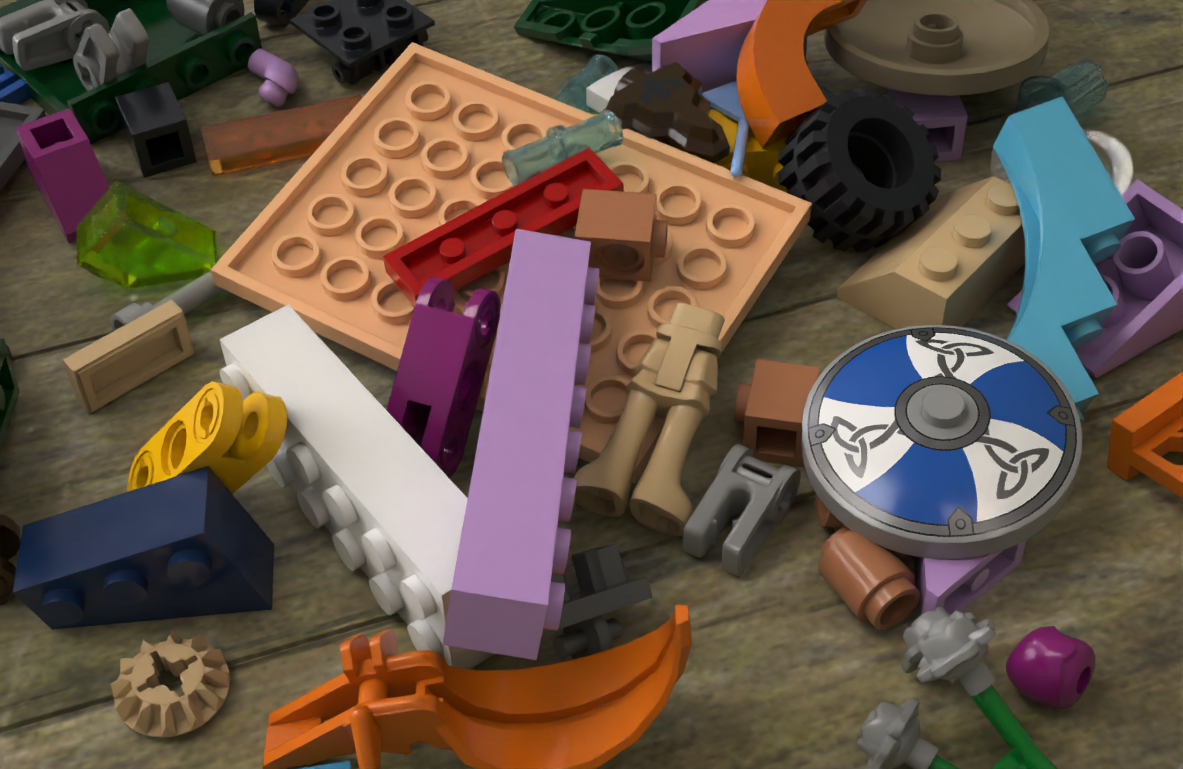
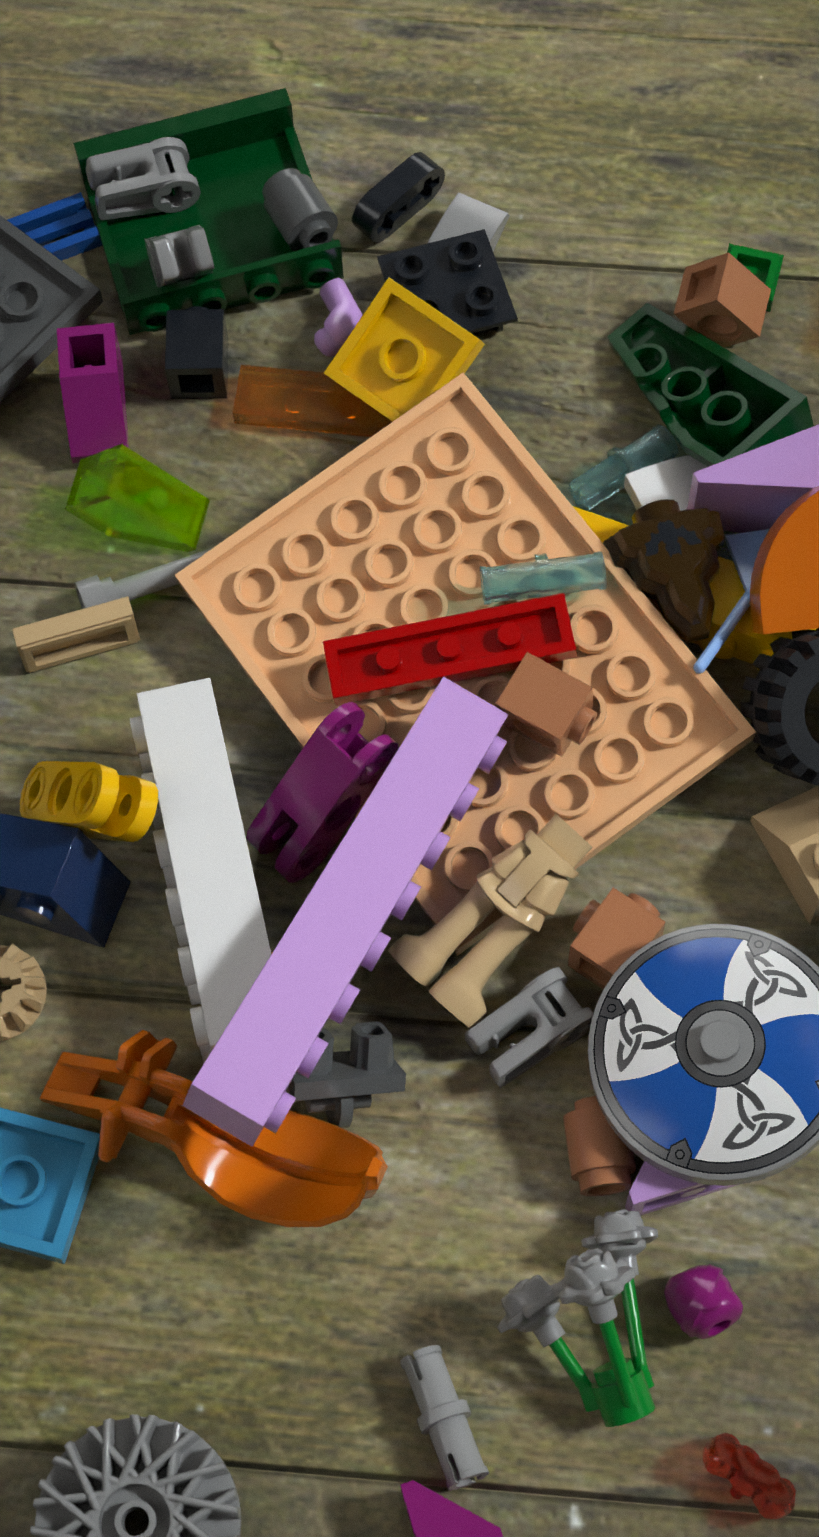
camera: 25 degrees right, 20 degrees up
(343, 58) = (401, 352): none -> yellow plate

